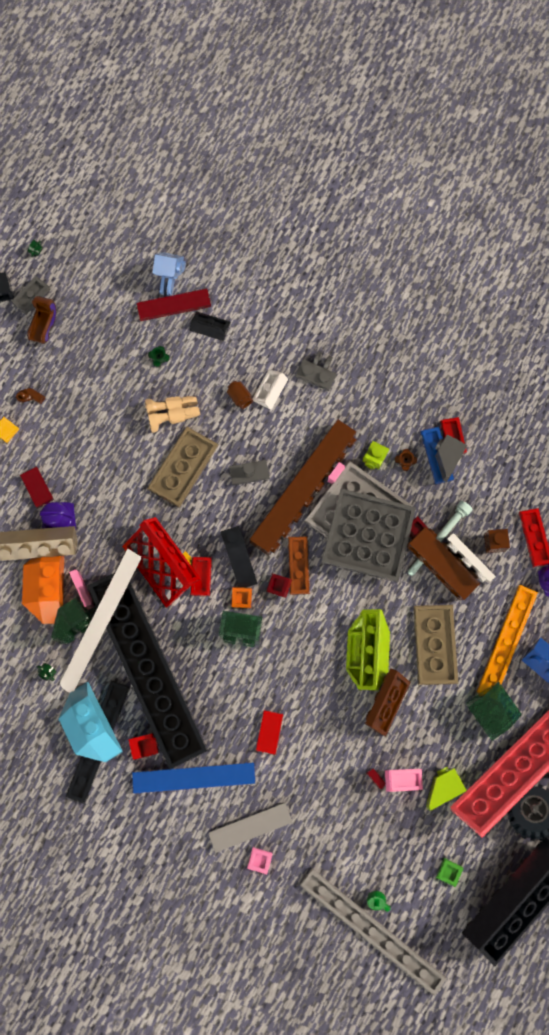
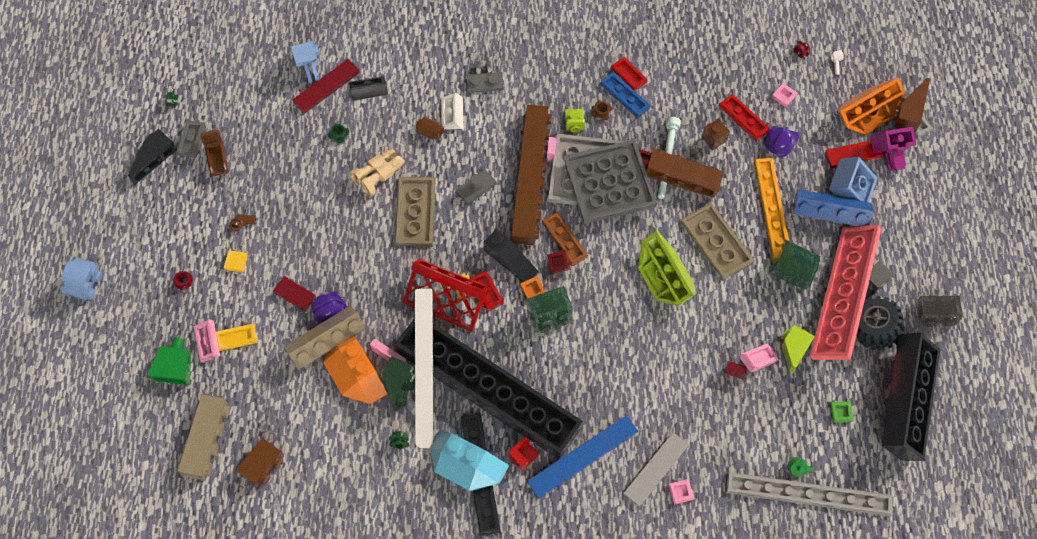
camera: 30 degrees left, 10 degrees down
(269, 732) = (624, 384): red tile -> none
(387, 702) = (707, 303): reddish brown plate -> none
(448, 455) = (635, 87): dark grey slope -> none
(470, 559) = (704, 155): white plate -> none

